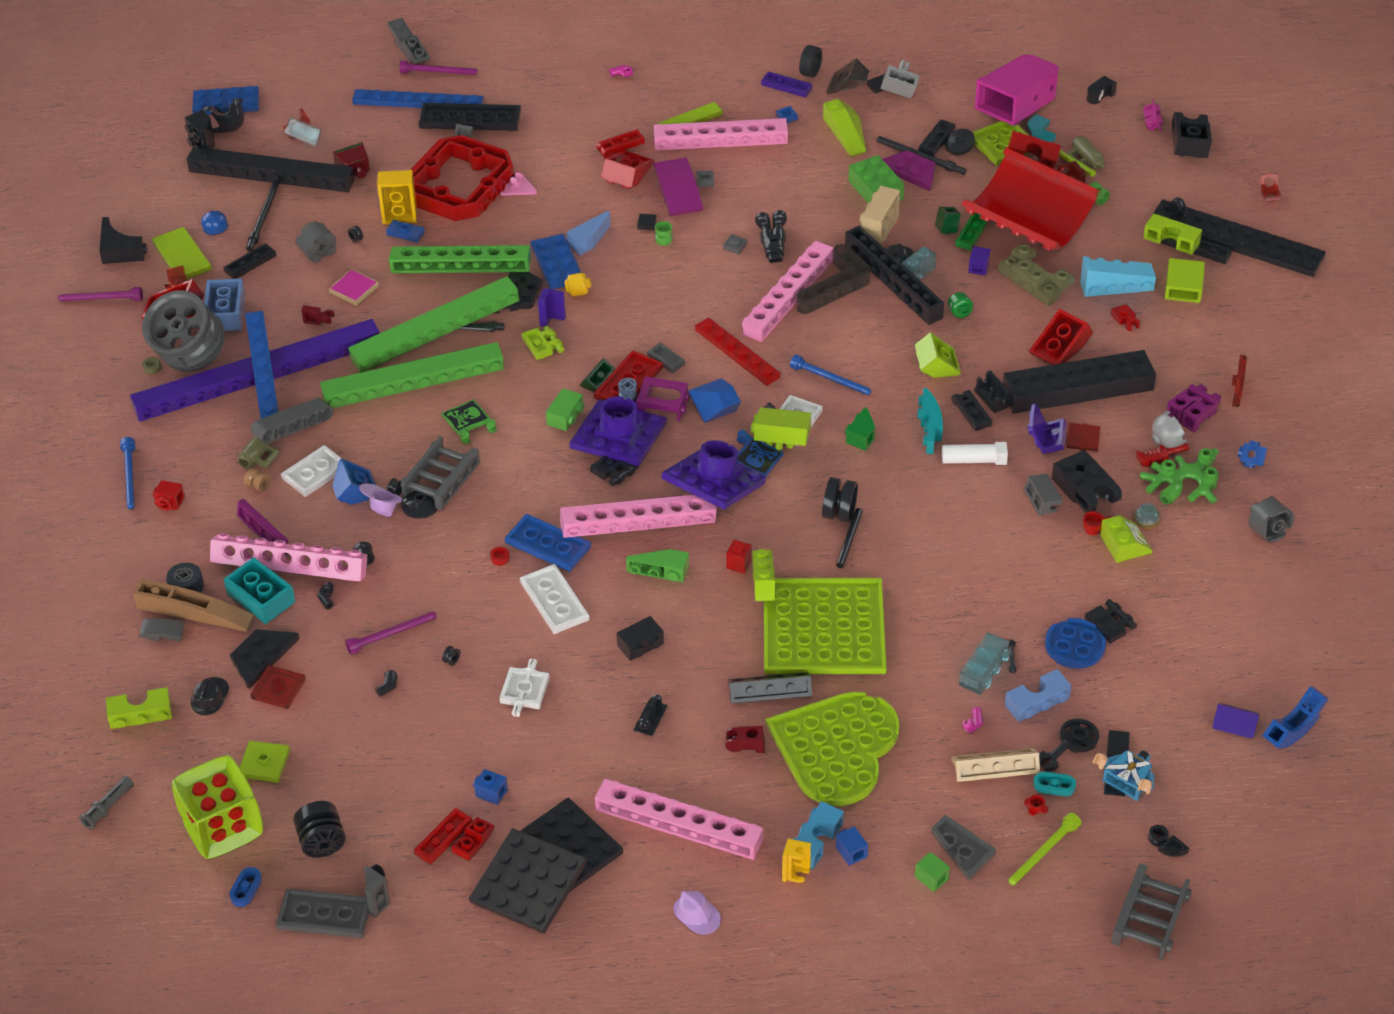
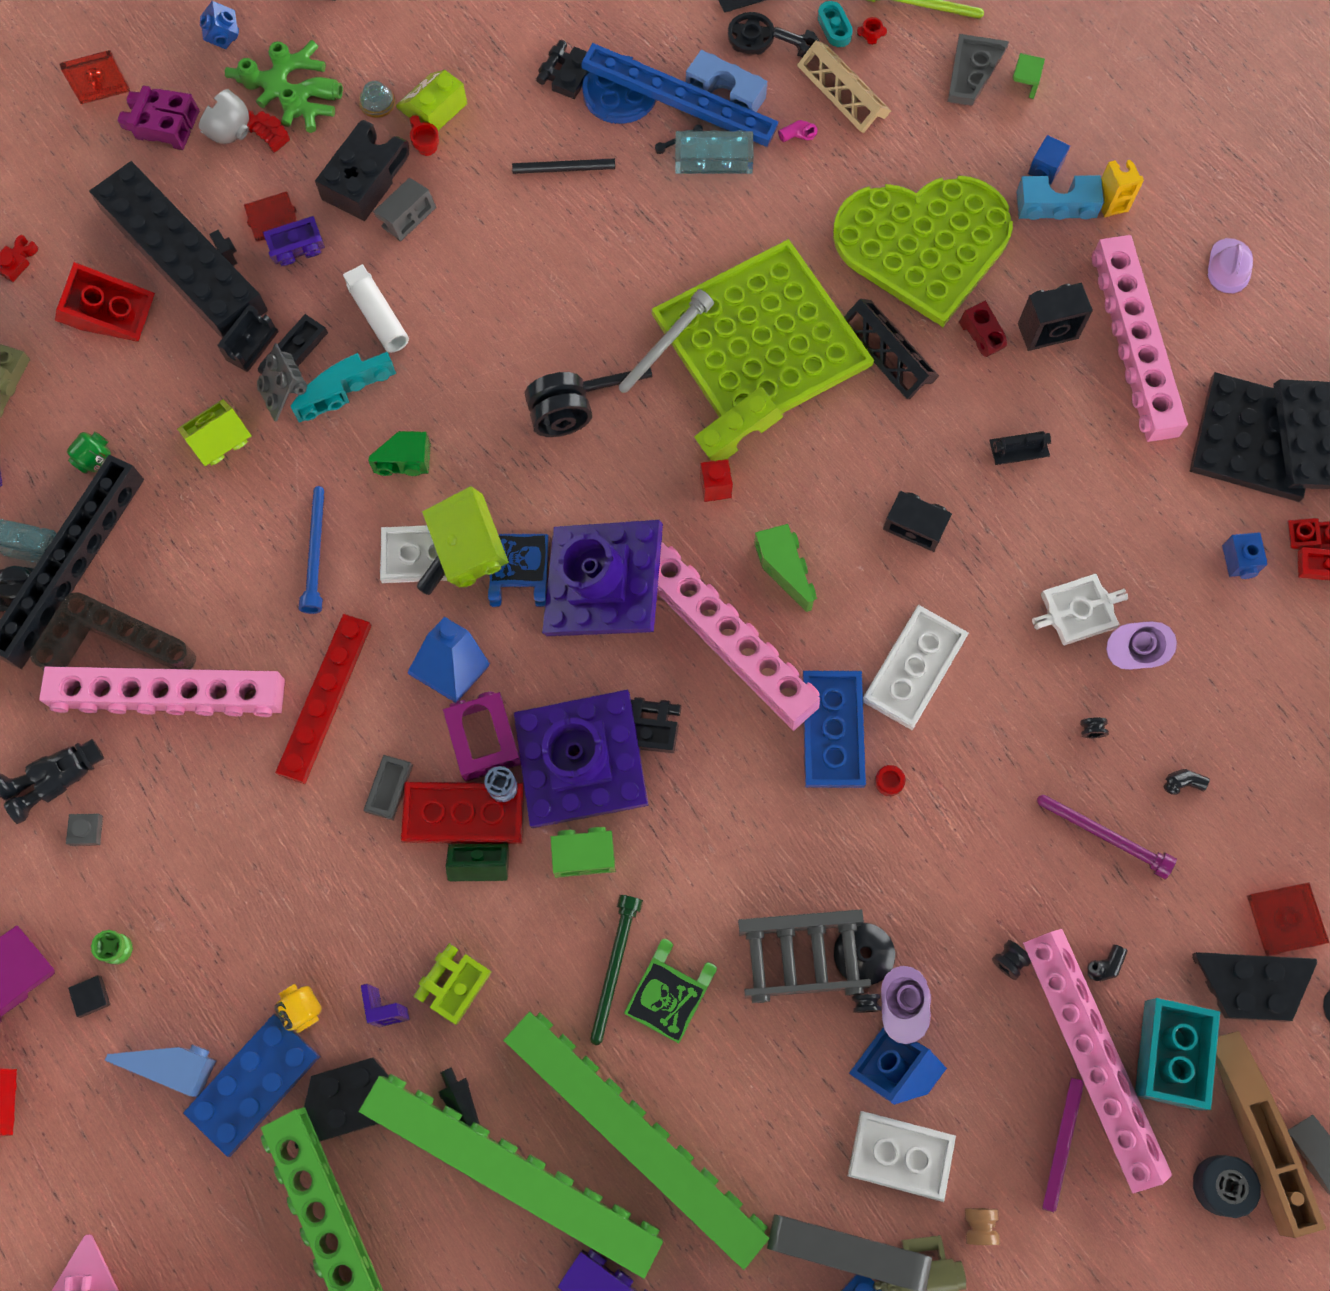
camera: 120 degrees left, 25 degrees up
(478, 698) = (1141, 645): none -> lavender piece
(523, 419) = (628, 909): none -> dark green piece
(723, 770) = (1054, 316): none -> black brick
(864, 595) = (699, 303): none -> light grey piece
(940, 388) = (278, 380): none -> dark grey hinge
(1028, 587) = (562, 166): none -> black bar
(1042, 661) = (678, 94): none -> blue plate
(1067, 402) = (224, 246): none -> black plate

